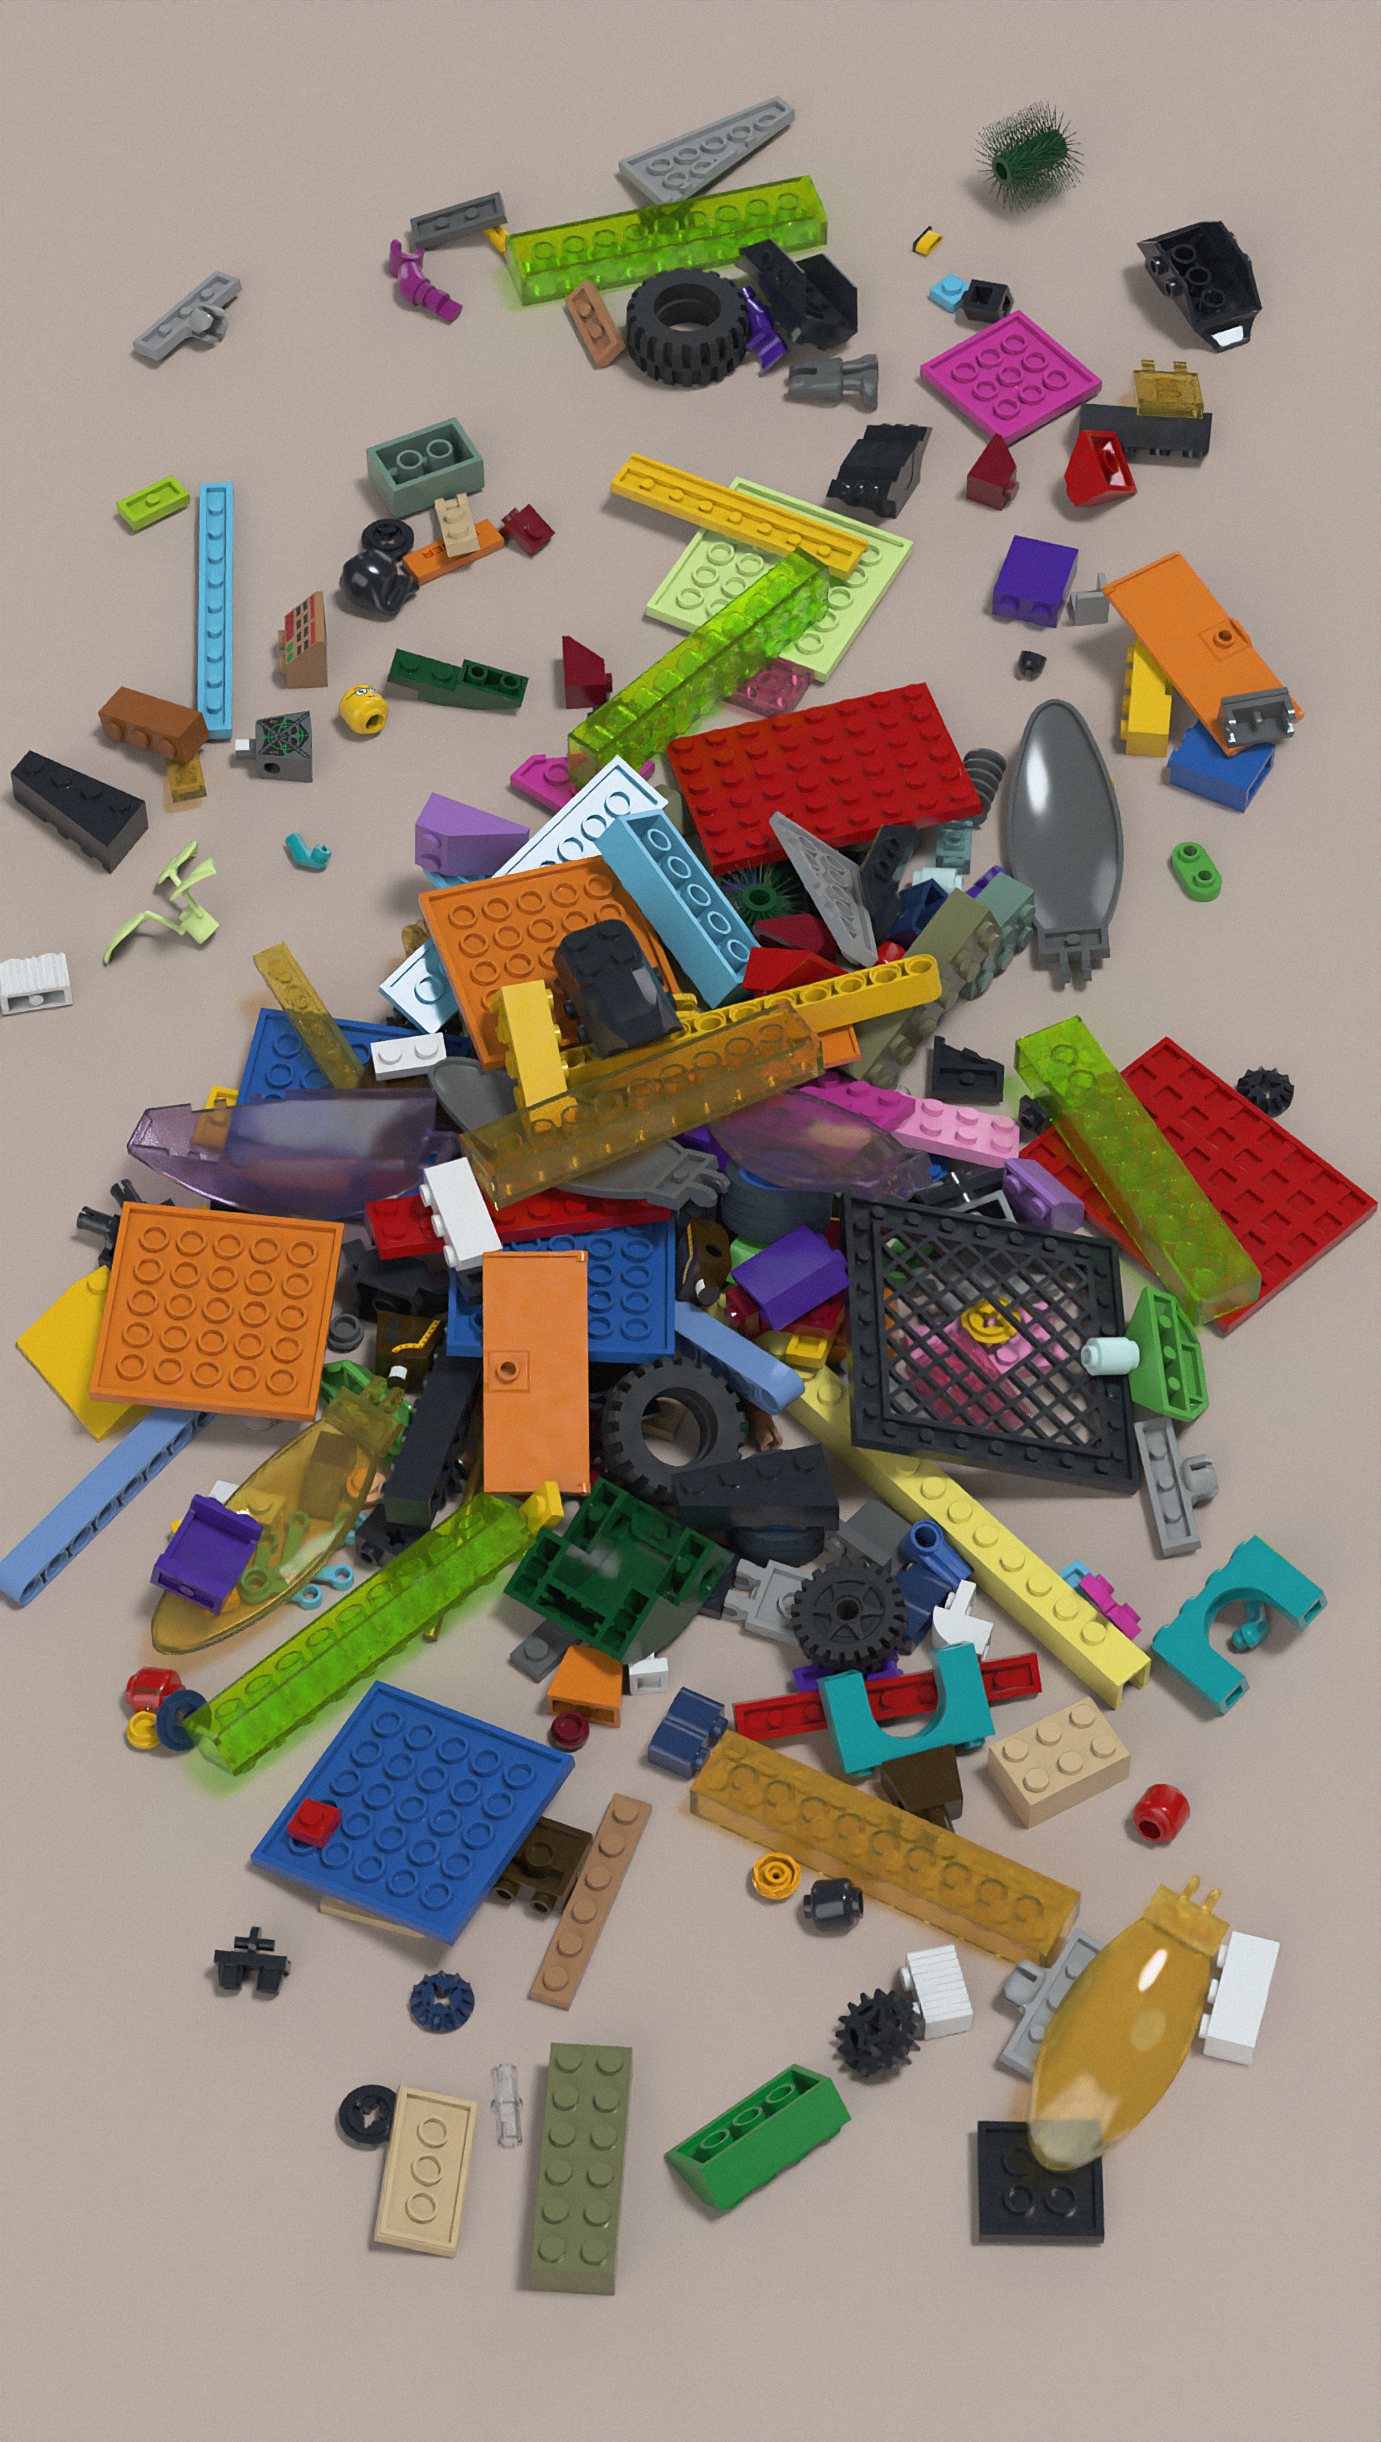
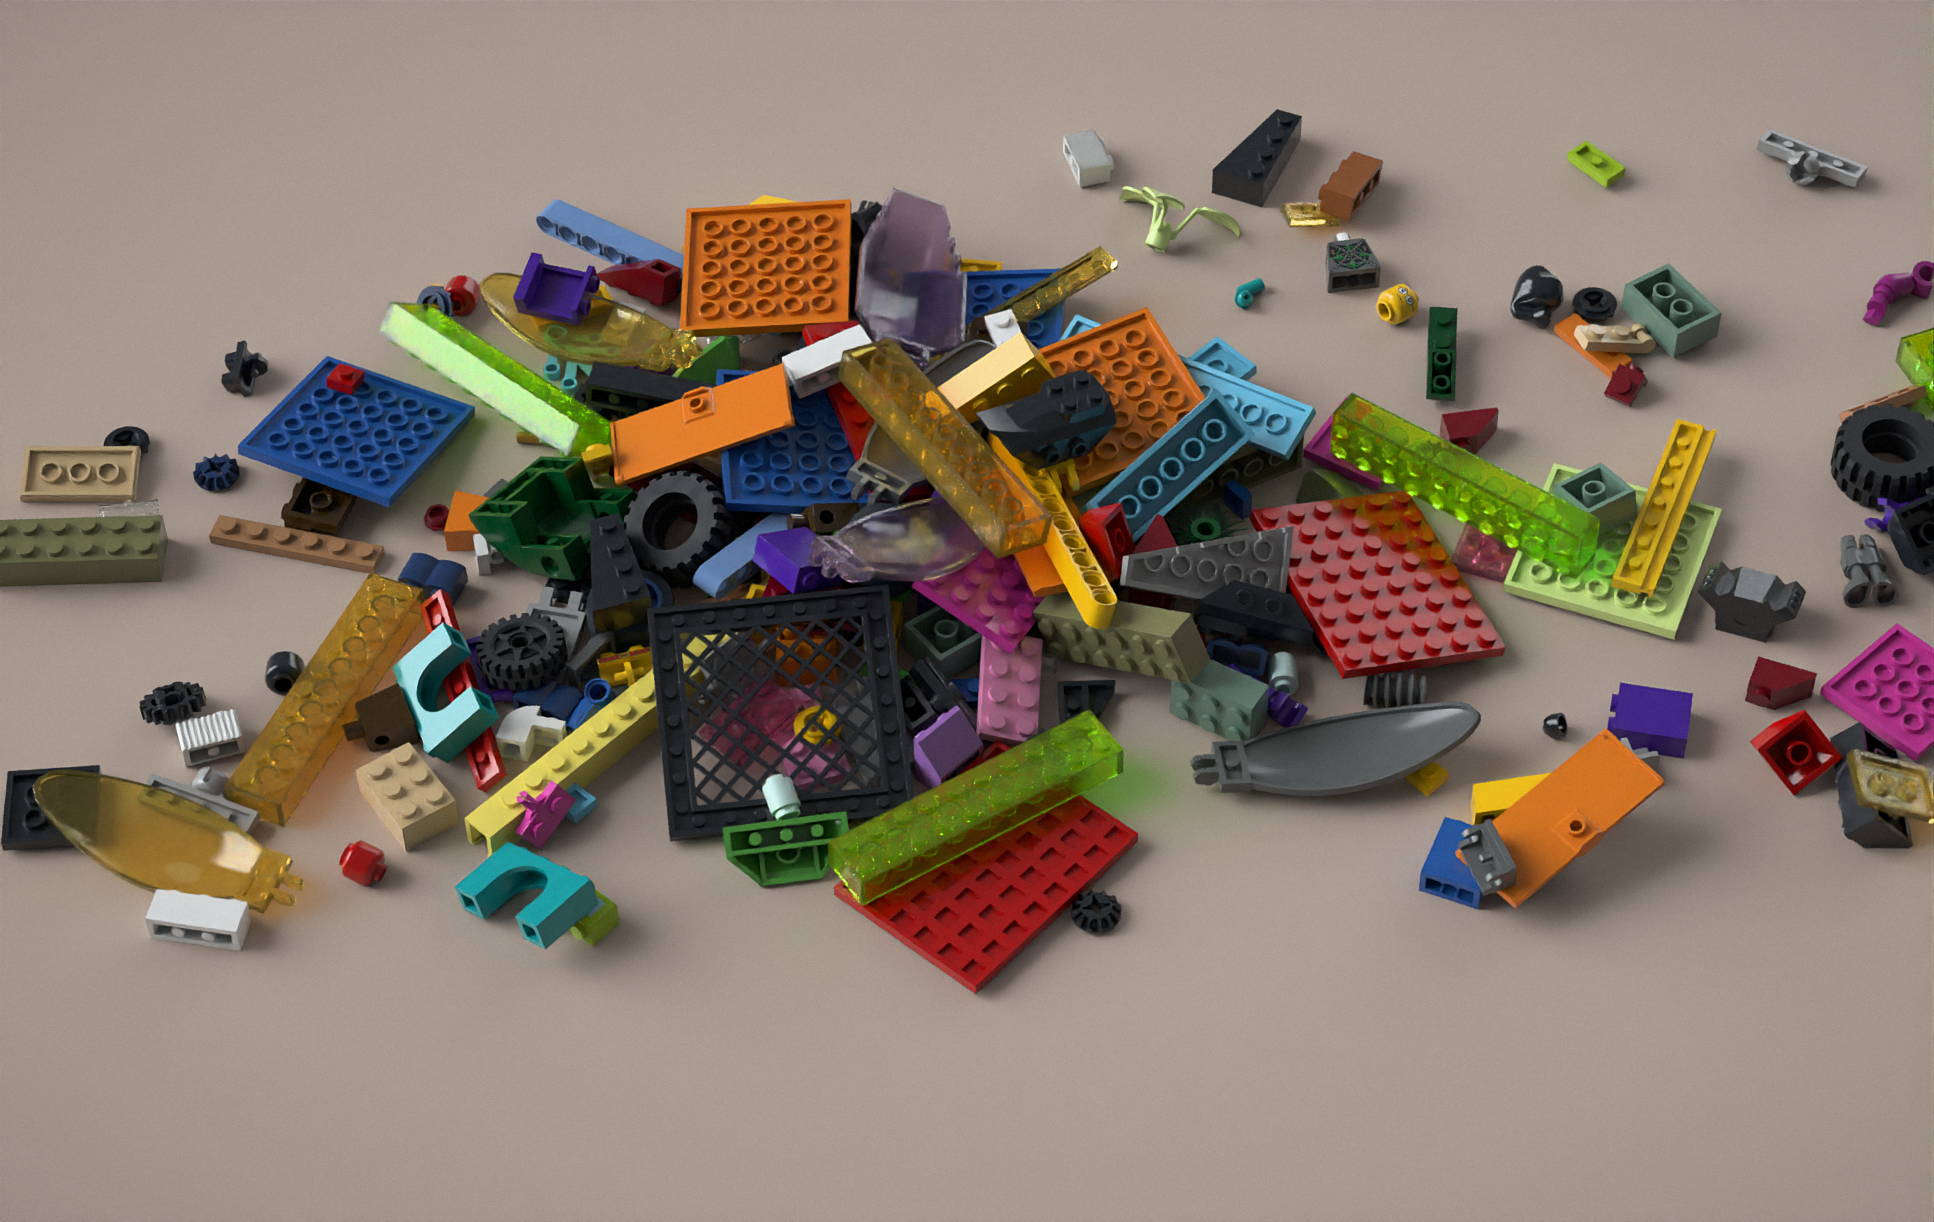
camera: 85 degrees right, 5 degrees down
(169, 1475) = (648, 279): none -> dark red slope
(216, 608) = (1490, 212): medium azure plate -> none
(305, 645) = (1456, 265): medium nougat slope -> none
(464, 839) = (1226, 331): medium lavender slope -> none
(734, 558) = (1601, 495): none -> sand green brick
(760, 2136) = (95, 645): green slope -> none
(779, 1865) = (309, 639): light orange plate -> none
(868, 1500) = (625, 666): none -> yellow hips
(954, 846) = (1324, 684): clear light blue brick -> none
(1174, 1484) = (671, 861): light grey plate -> none
(1191, 866) = (1339, 854): bright green plate -> none

